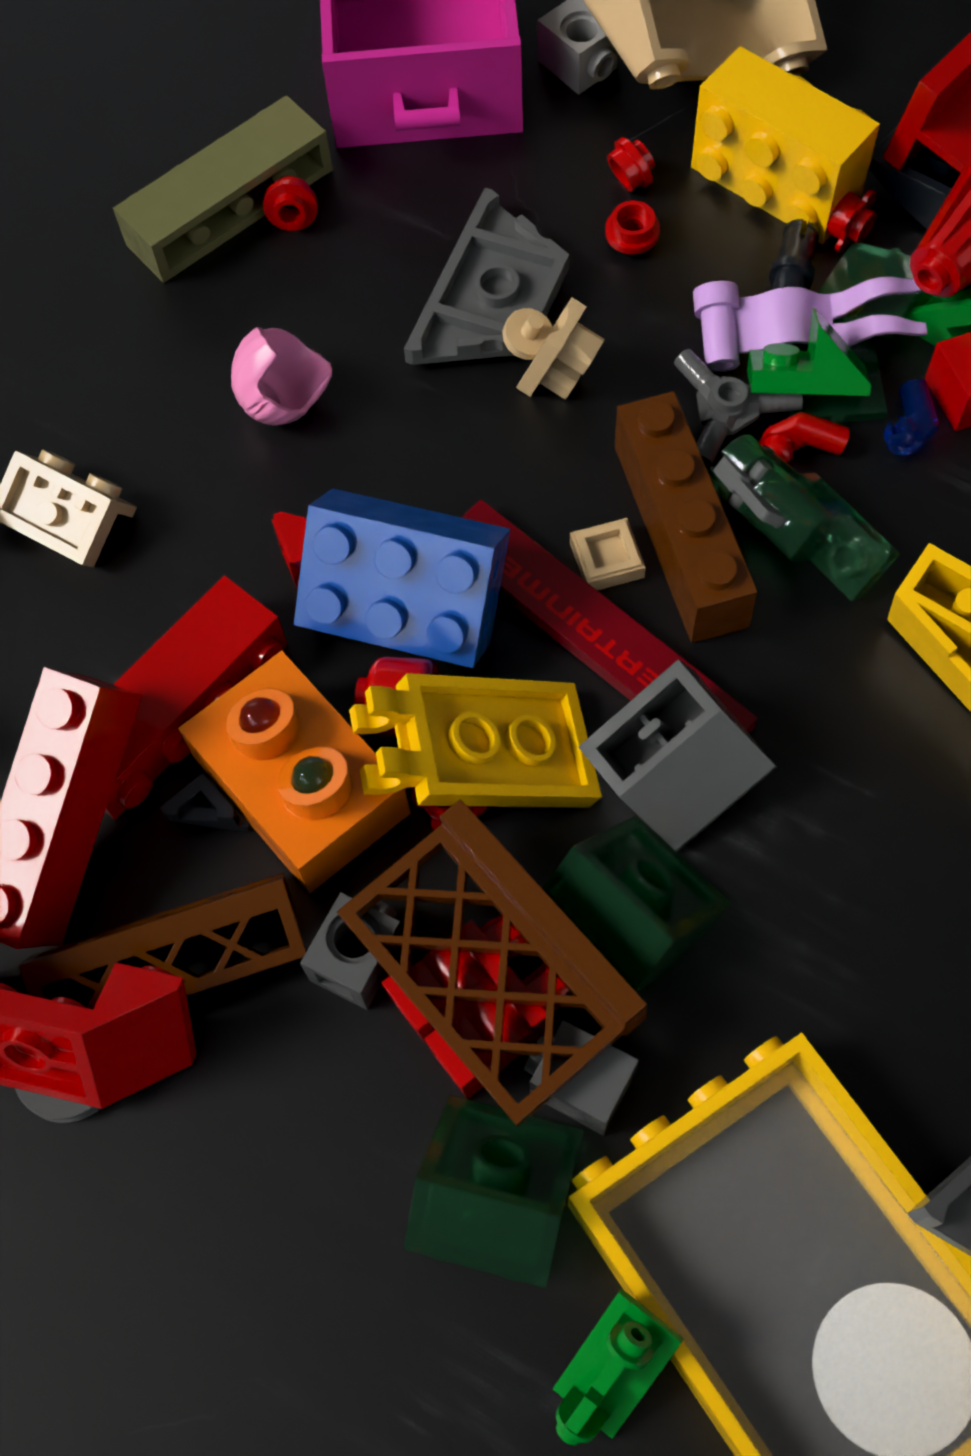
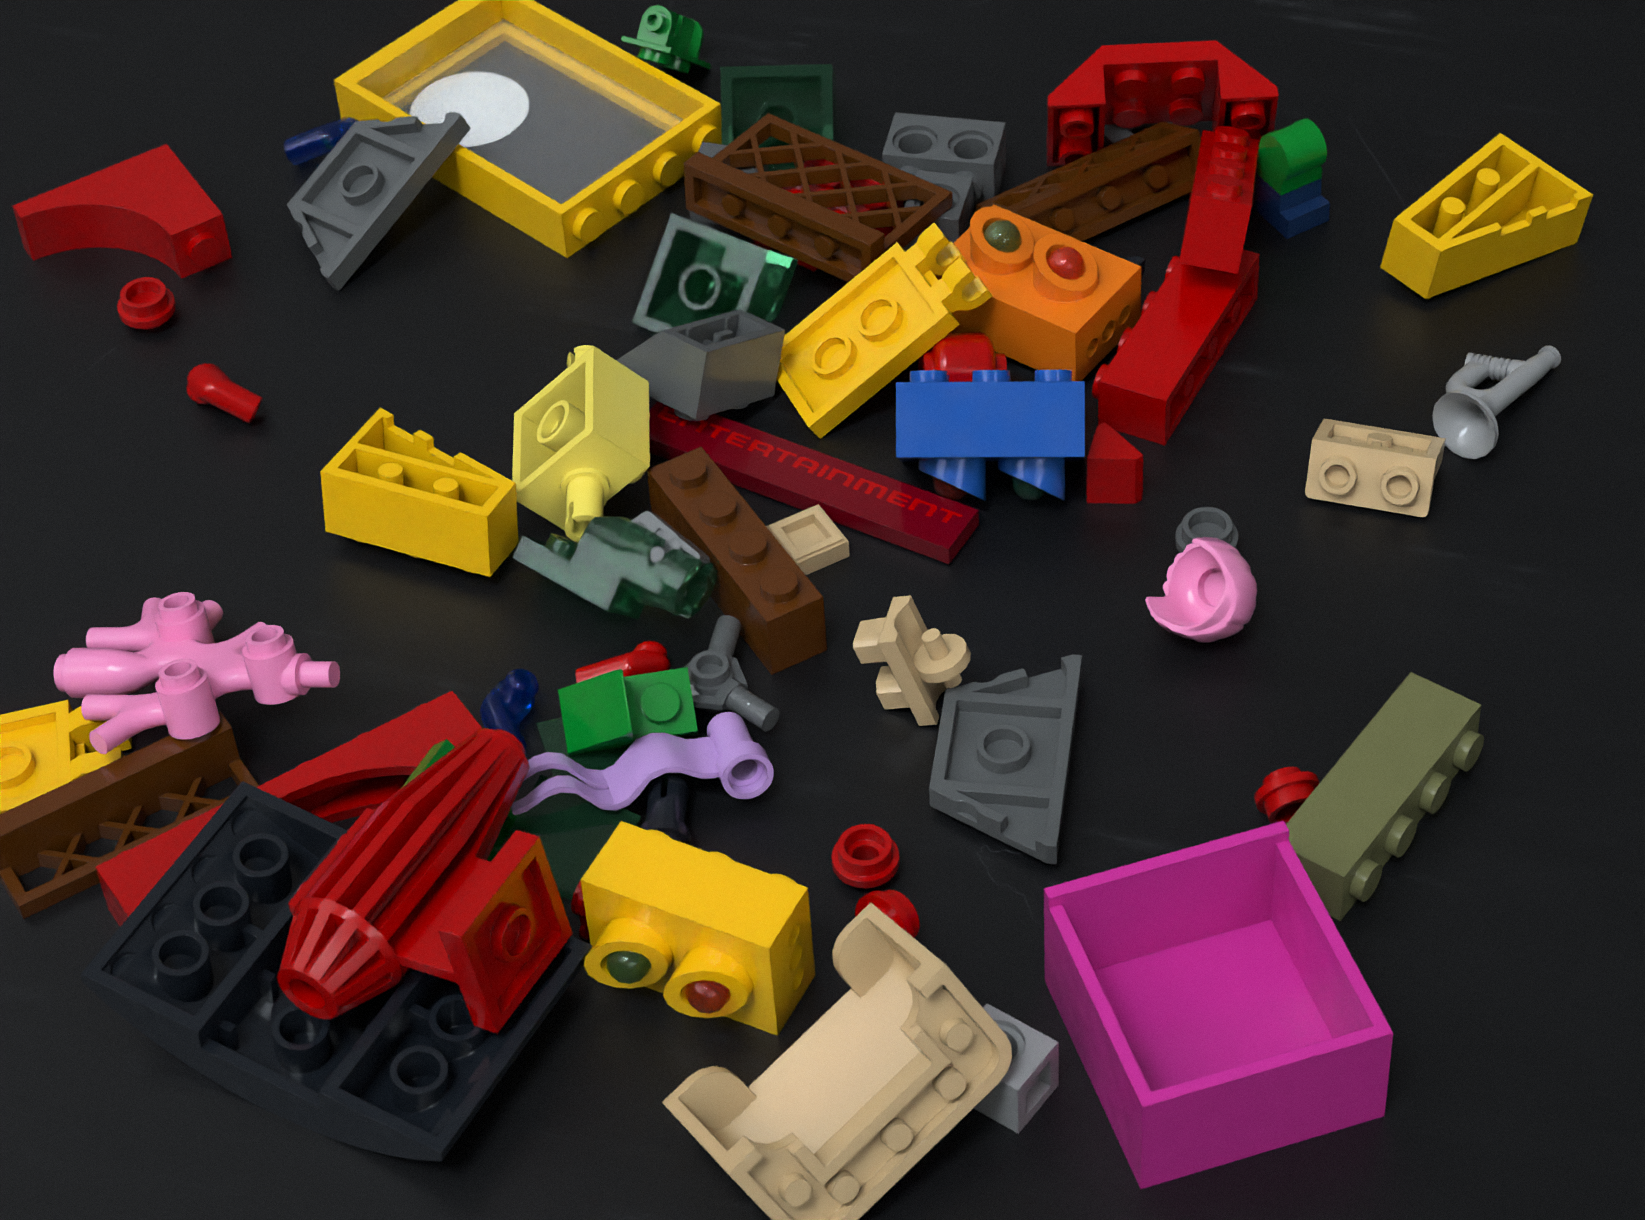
camera: 165 degrees right, 20 degrees down
(246, 466) = (1205, 523): none -> dark grey plate
(309, 1061) = (949, 147): none -> dark grey brick
(818, 657) = (581, 440): none -> light yellow brick

